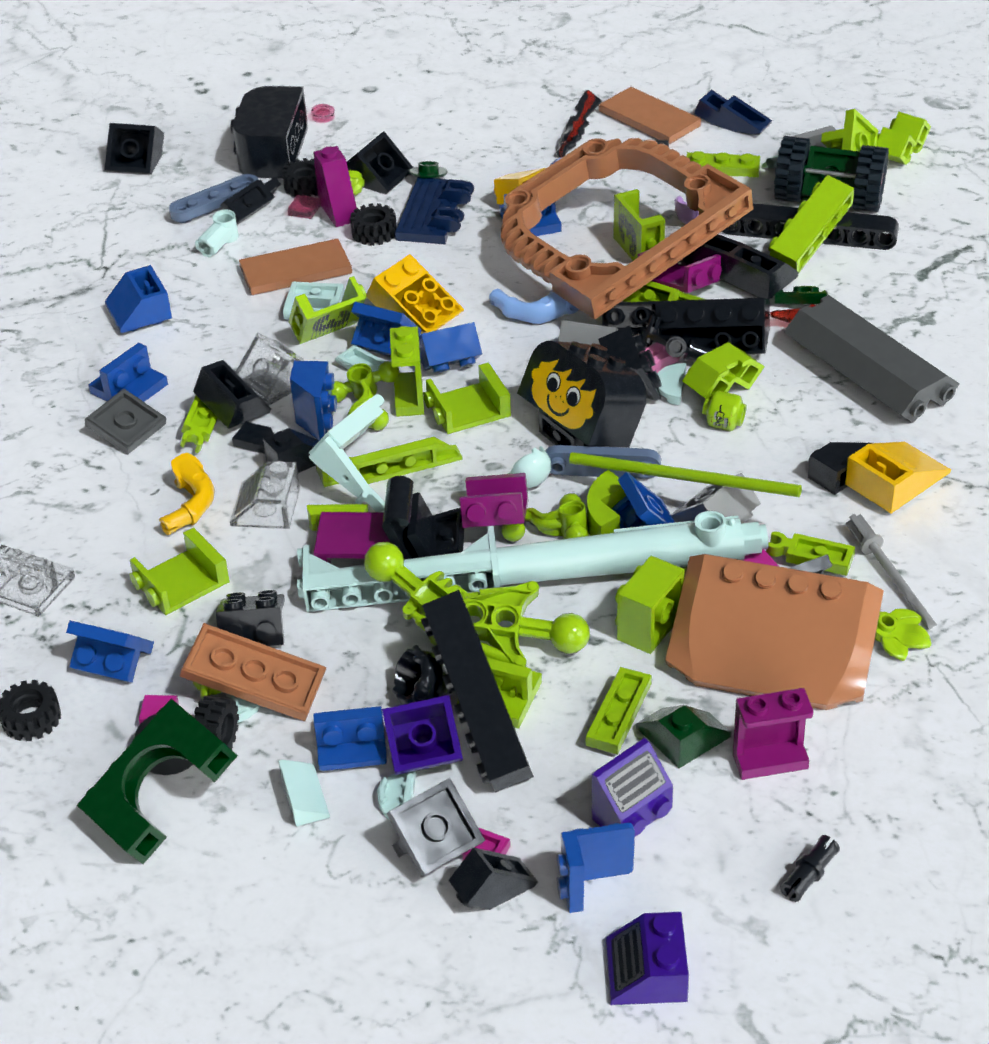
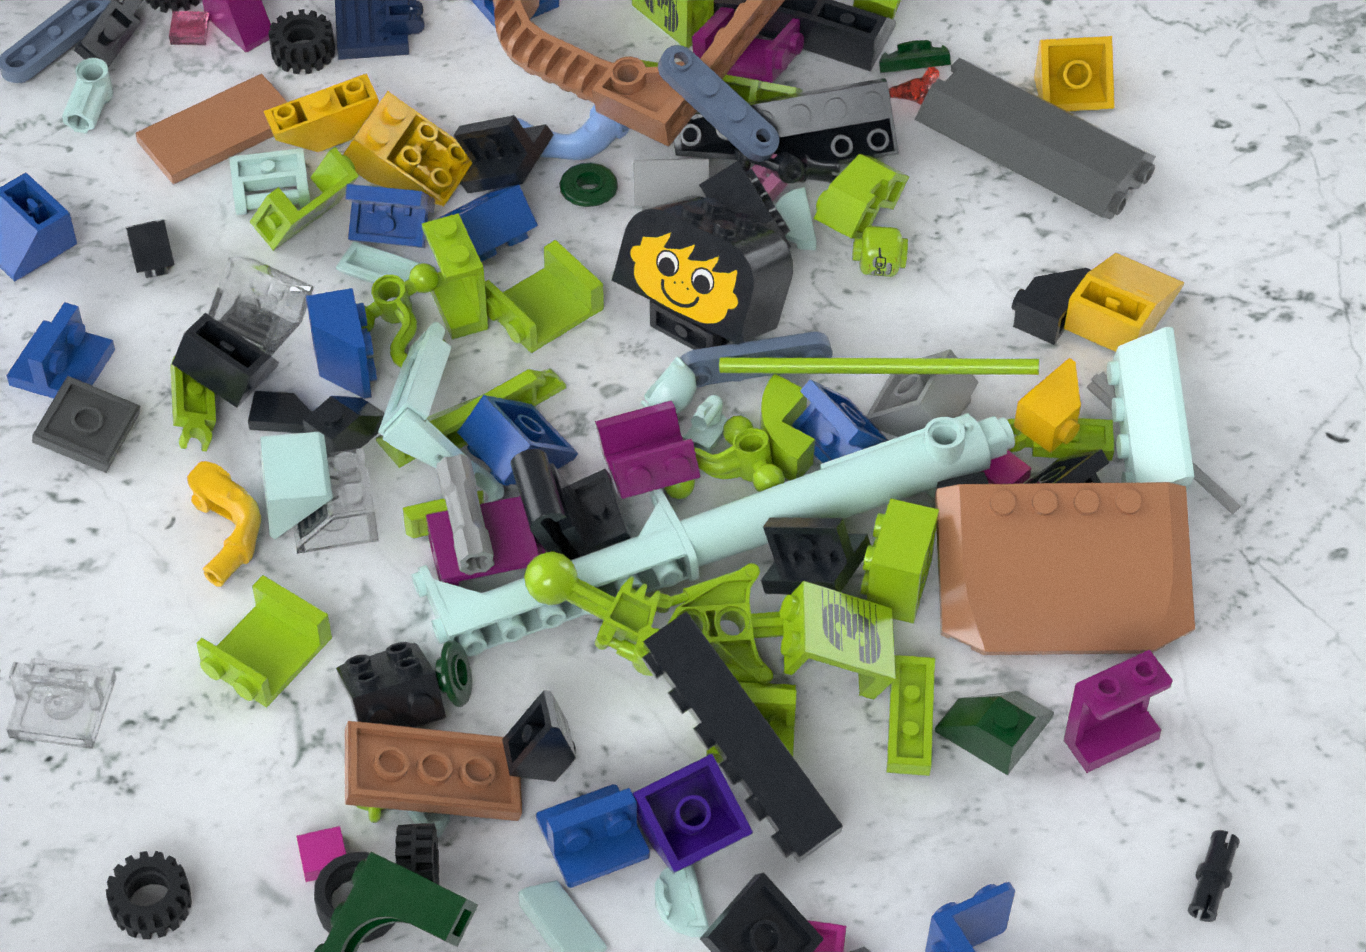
camera: 20 degrees left, 10 degrees up
(106, 651) = (220, 784): blue bracket -> none
(215, 324) = (150, 248): none -> black slope
(239, 473) = (294, 478): none -> light aqua slope
(297, 614) = (454, 673): none -> dark green piece
(337, 667) = (540, 742): none -> black slope
(341, 529) = (465, 515): none -> light grey axle
(362, 263) = (324, 116): none -> yellow slope
(399, 462) = (504, 428): none -> blue slope
(418, 676) = (651, 731): black hair -> none
(475, 302) = (500, 152): none -> black bracket
(529, 336) = (588, 174): none -> dark green piece
(549, 492) = (707, 424): none -> light aqua piece
(582, 640) = (841, 633): none -> lime panel
(583, 586) = (811, 552): none -> black bracket
(631, 789) = (977, 832): dark purple slope -> none
(634, 292) = (718, 103): none -> sand blue plate
(806, 527) = (1051, 408): none -> yellow slope
(879, 536) = (1151, 410): none -> light aqua slope
(901, 631) = (1209, 528): lime plate -> none
(920, 321) = (1076, 73): none -> yellow slope

